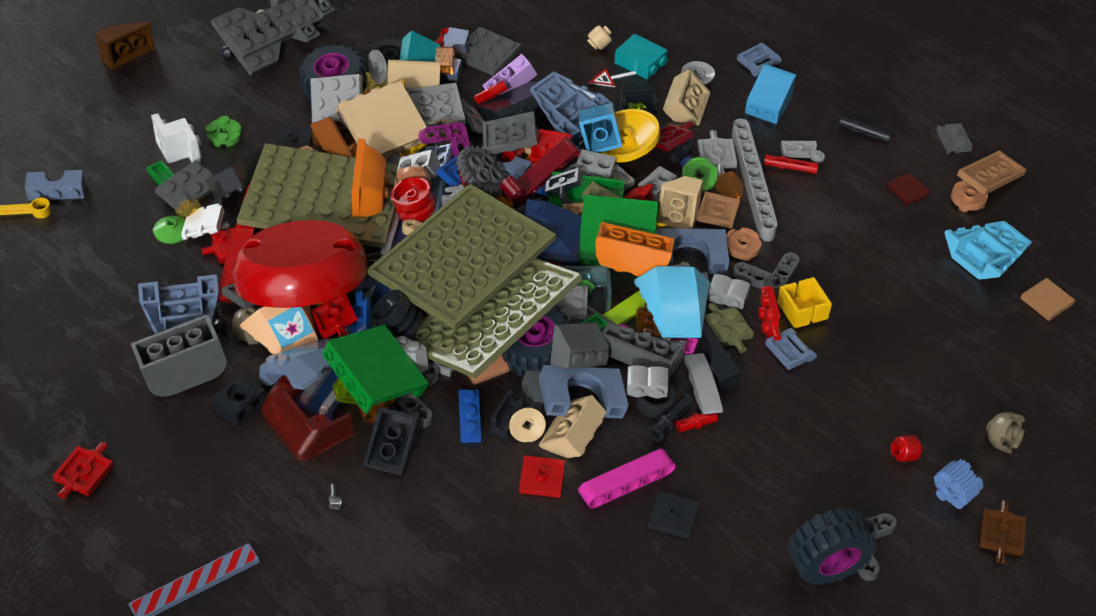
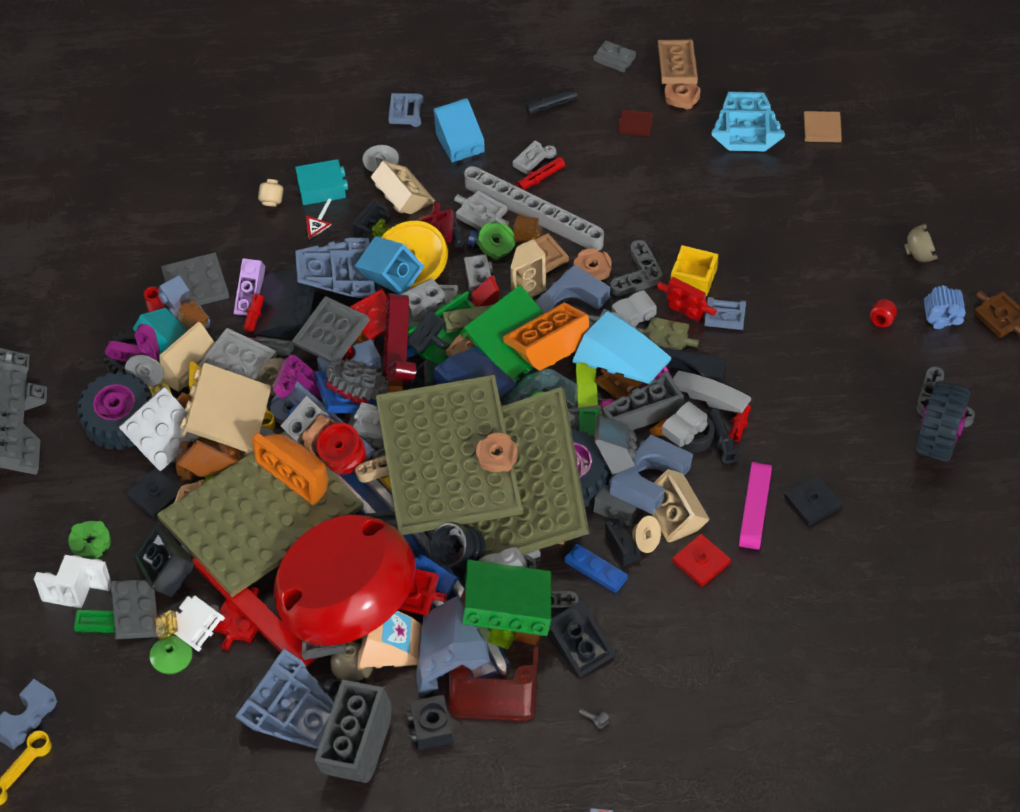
camera: 45 degrees left, 5 degrees up
(386, 44) = (146, 342): none -> magenta beam
(485, 285) = (501, 462): none -> nougat plate

